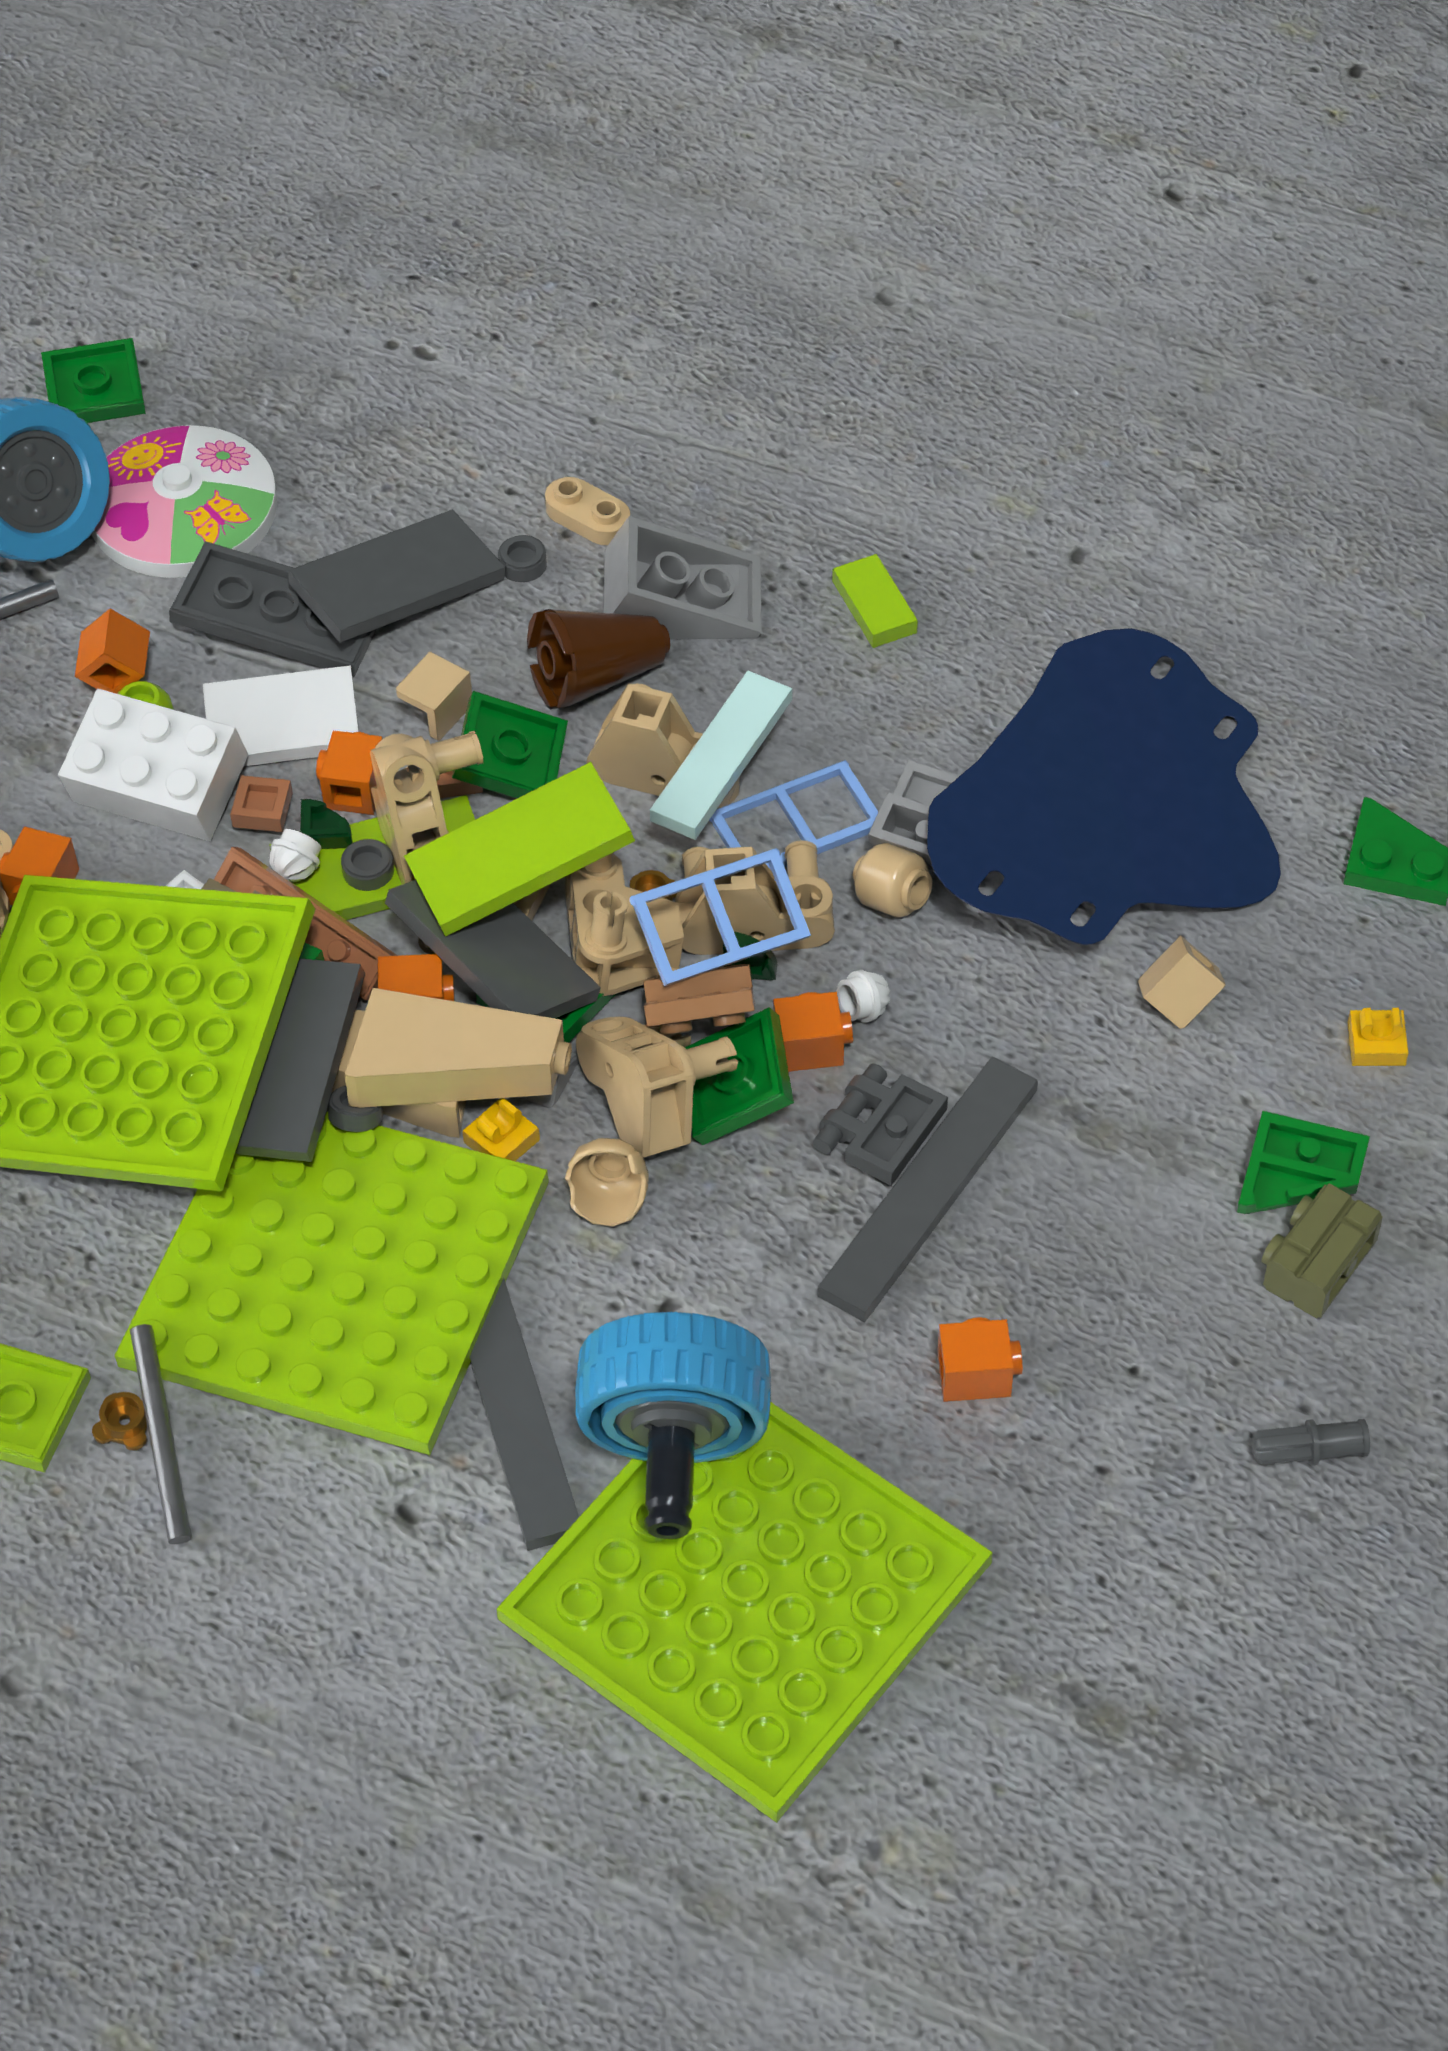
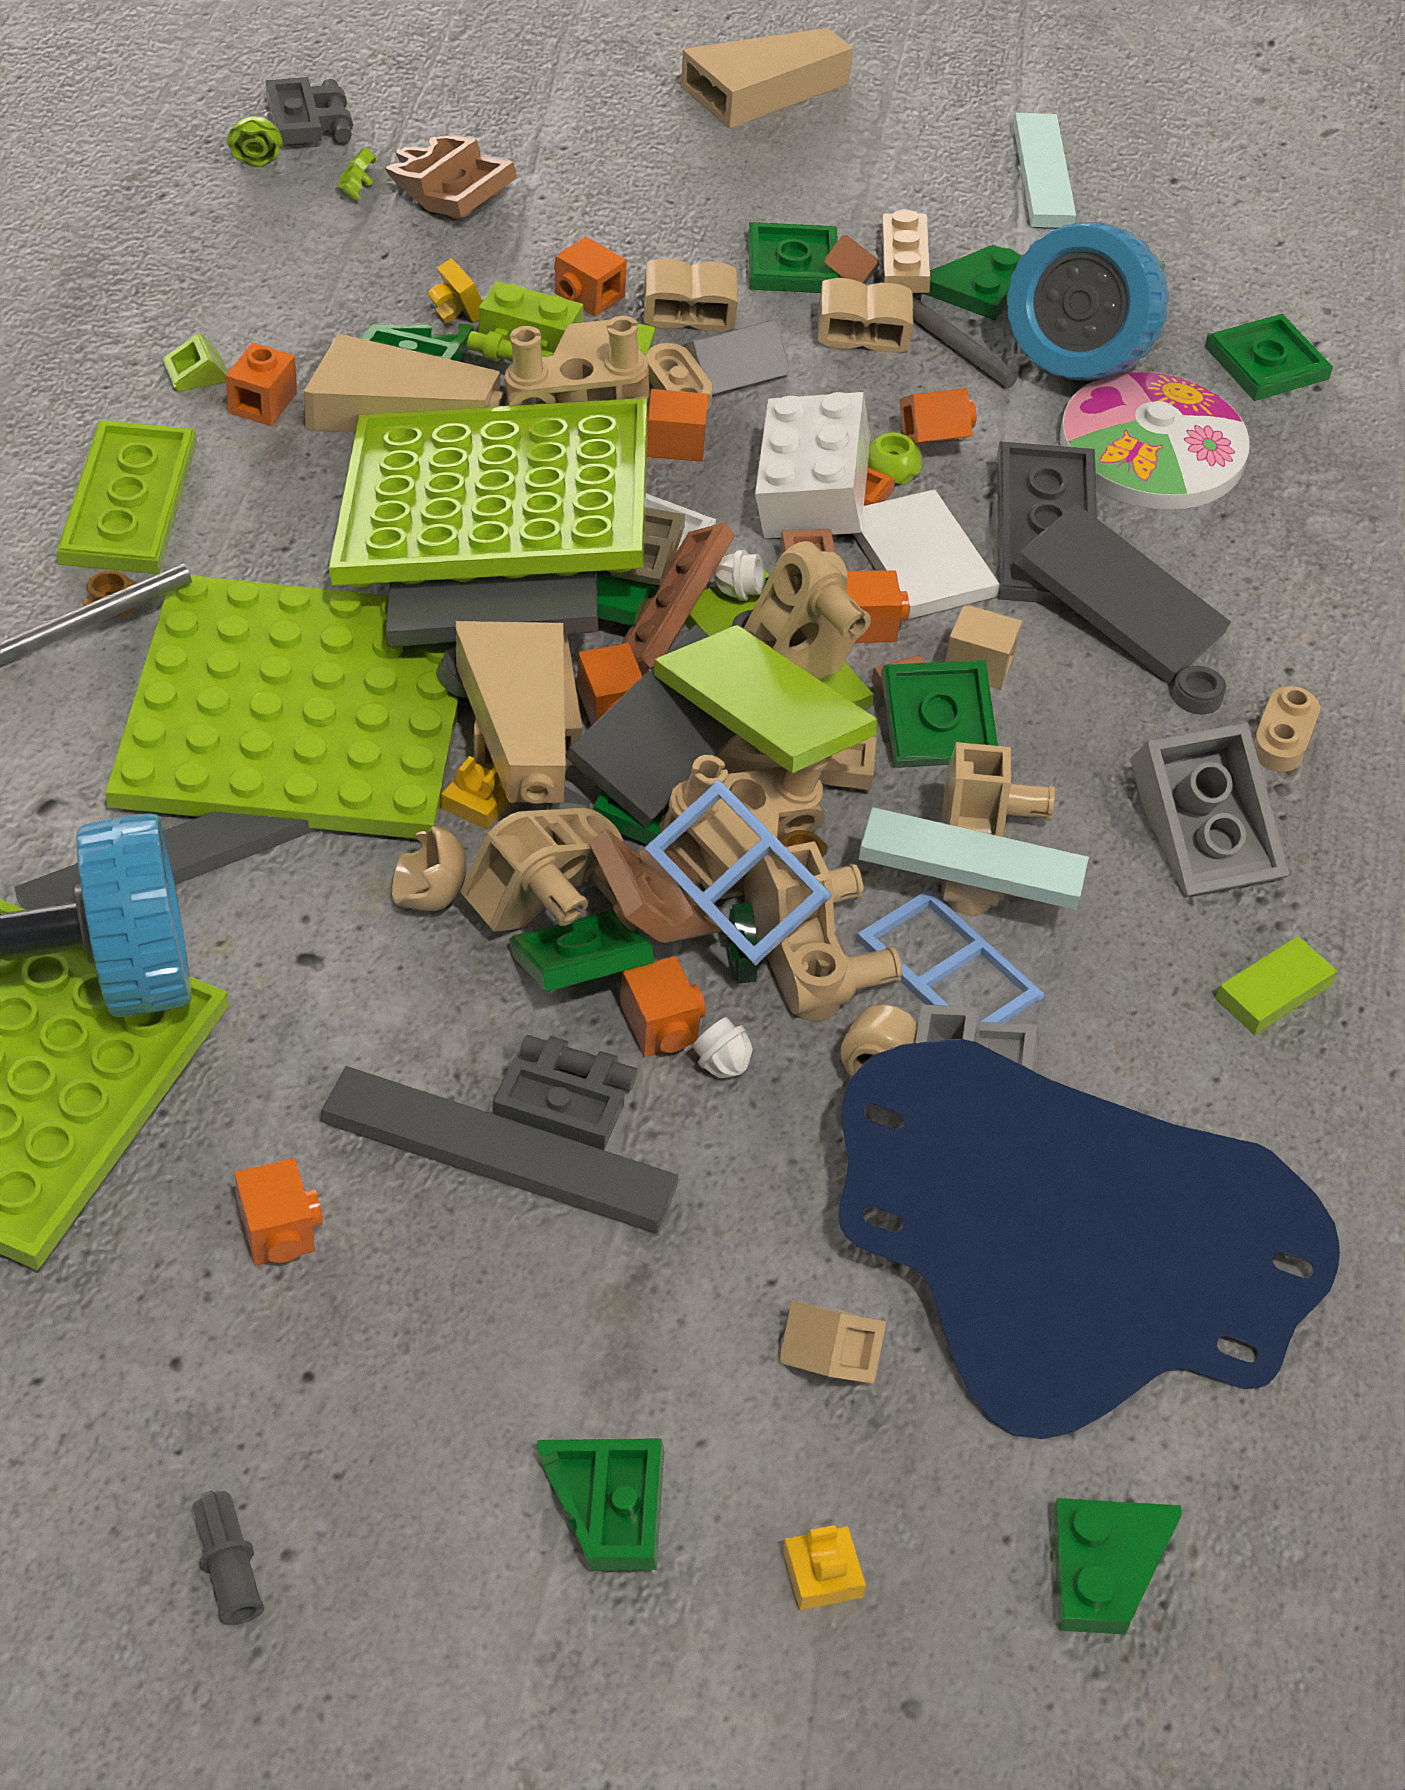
camera: 70 degrees right, 5 degrees down
(591, 652) = (1082, 748): reddish brown cone -> none
(1321, 1249) = (487, 1530): olive brick -> none

